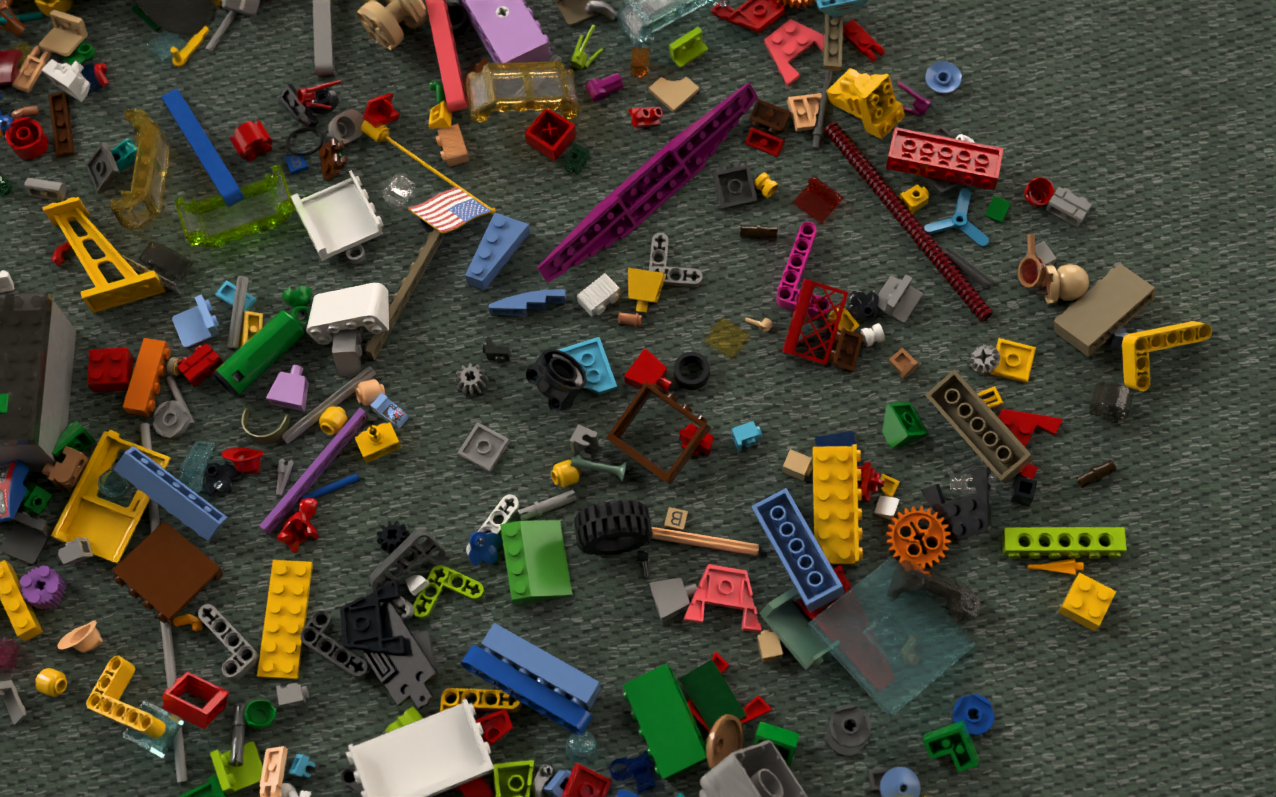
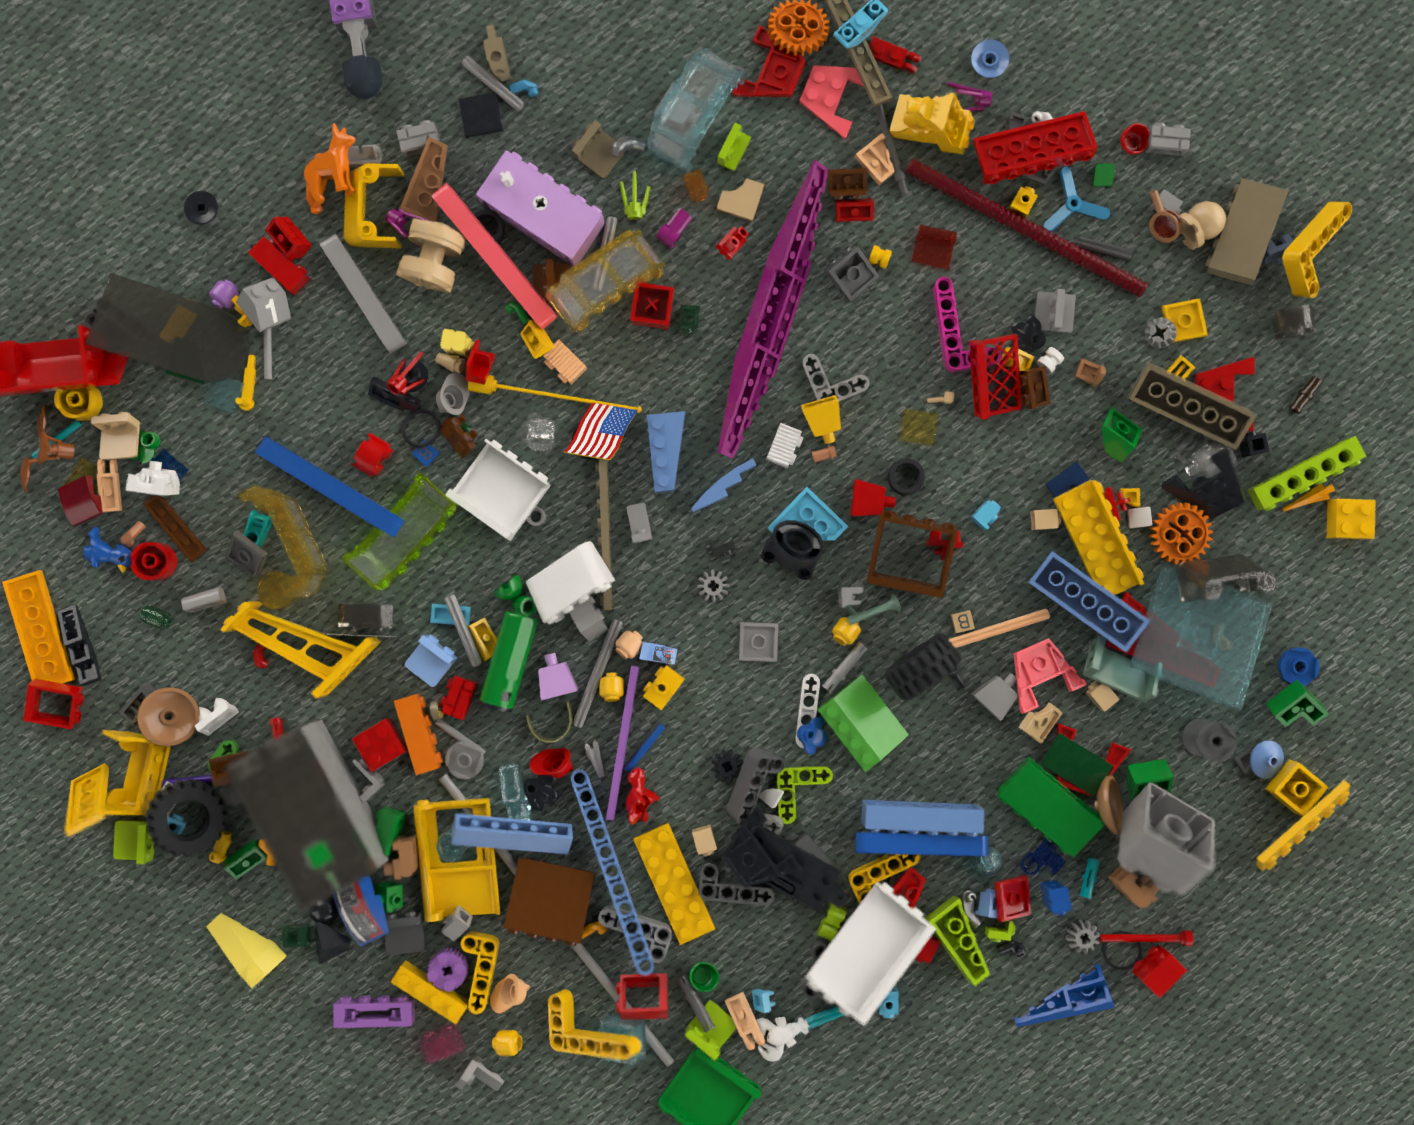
camera: 30 degrees left, 20 degrees up
(67, 605) = (481, 973): none -> yellow beam
(83, 403) = (376, 779): none -> light grey bracket
(101, 78) = (175, 451): red arm -> none
(101, 211) = (271, 590): none -> clear yellow tile
(235, 580) = (611, 881): none -> medium blue beam
(292, 695) = (721, 946): light grey brick -> none
(334, 592) = (704, 840): none -> tan brick
(358, 101) = (453, 363): none -> tan cone
(371, 85) = (456, 343): none -> light yellow brick
(438, 300) = (639, 523): none -> light grey bracket
(698, 641) = (1040, 723): none -> tan tile
(758, 231) = (896, 307): dark brown pin -> none

